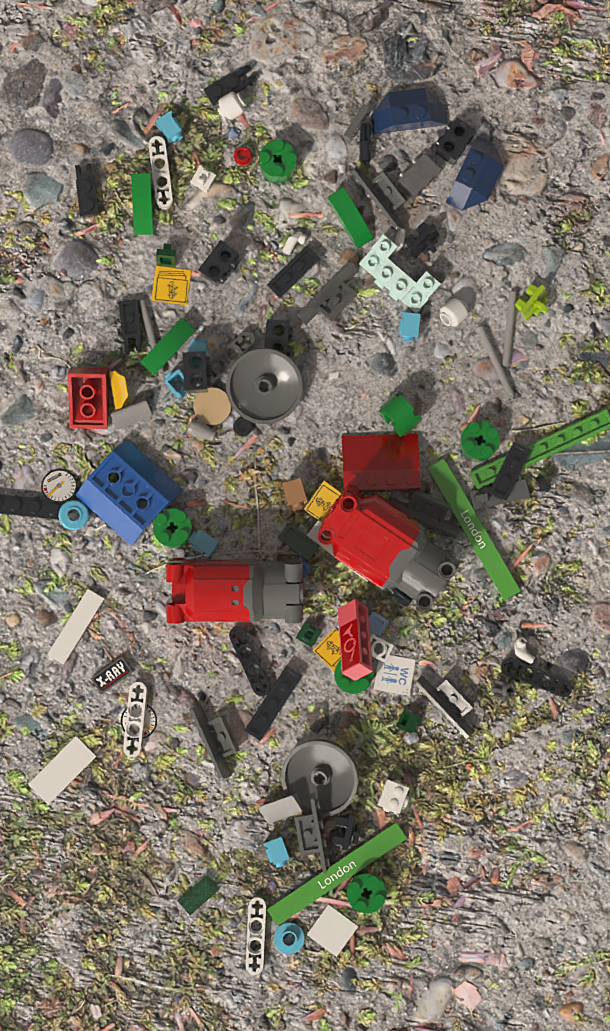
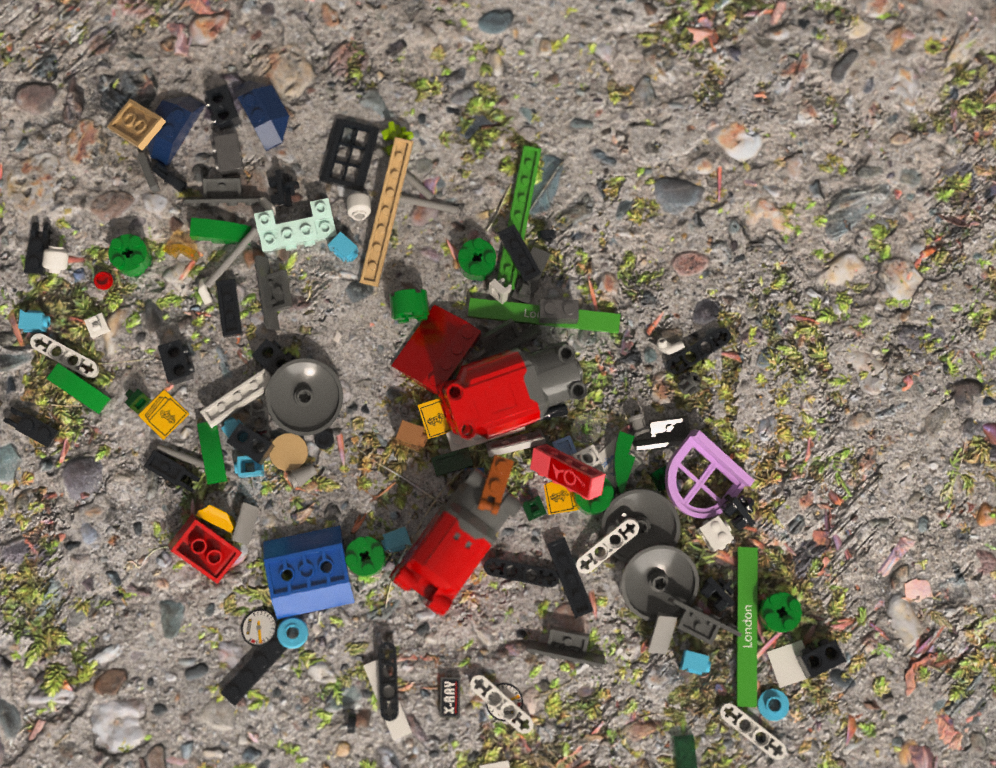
camera: 60 degrees left, 5 degrees down
(37, 612) = (351, 723): none -> black tile
(87, 614) = (391, 681): none -> black beam
(224, 333) = (236, 398): none -> white tile
(299, 589) = (495, 484): none -> dark orange plate
(308, 193) = (175, 249): none -> clear yellow slope
(320, 715) = (607, 545): none -> white beam
(334, 243) = (231, 257): none -> light grey bar
(350, 582) = (515, 443): none -> light grey tile
(350, 955) = (822, 663): none -> black brick
(357, 725) = (654, 513): none -> dark grey dish
(388, 84) = (136, 124): none -> tan plate
(397, 679) = (622, 460): none -> green slope
(421, 810) = (733, 505): none -> black hips
(438, 671) = (639, 425): none -> light grey bush
(454, 755) = (718, 460): none -> lavender window
(465, 338) = (386, 212): none -> tan tile
(465, 478) = (498, 291): none -> white tile
(483, 539) = (558, 311): none -> flat silver brick
(494, 253) = (366, 158): none -> black piece

